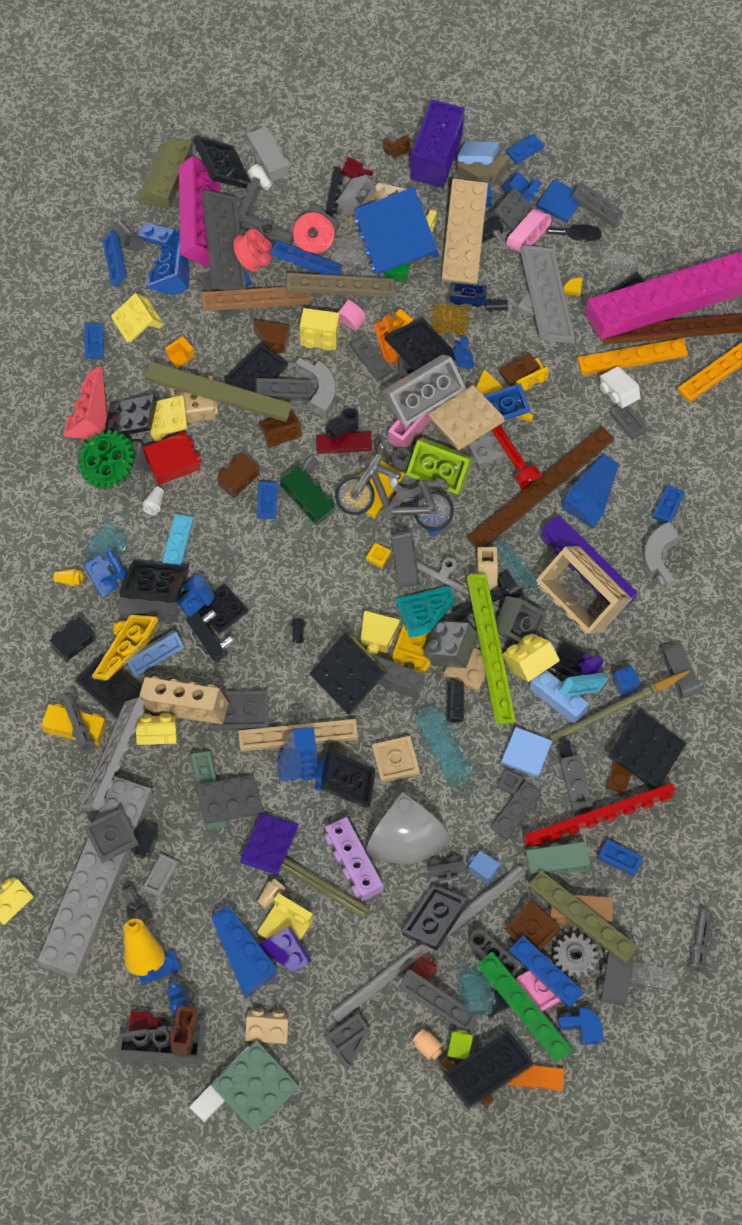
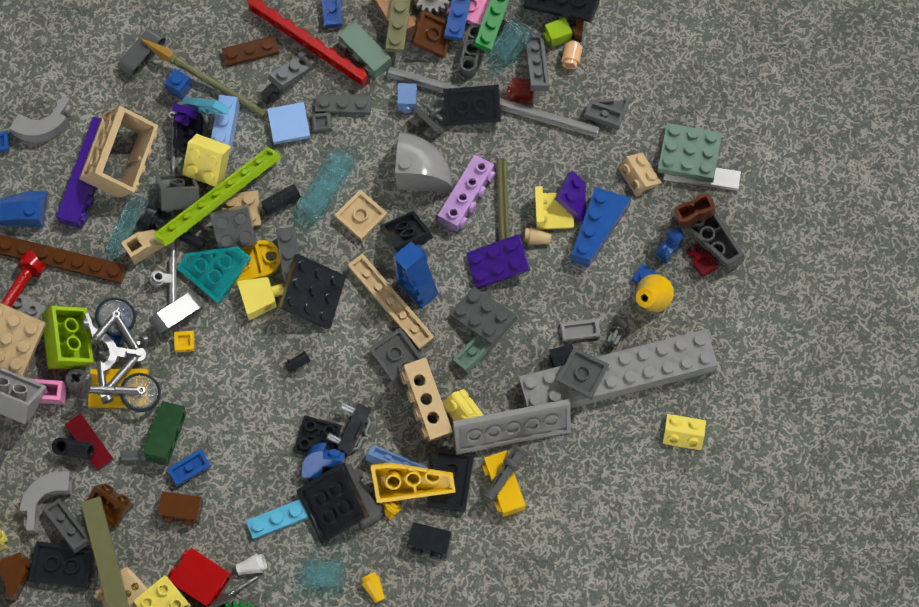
camera: 120 degrees left, 5 degrees up
(101, 576) = (355, 555): blue plate -> none
(647, 749) = (229, 37): black plate -> none

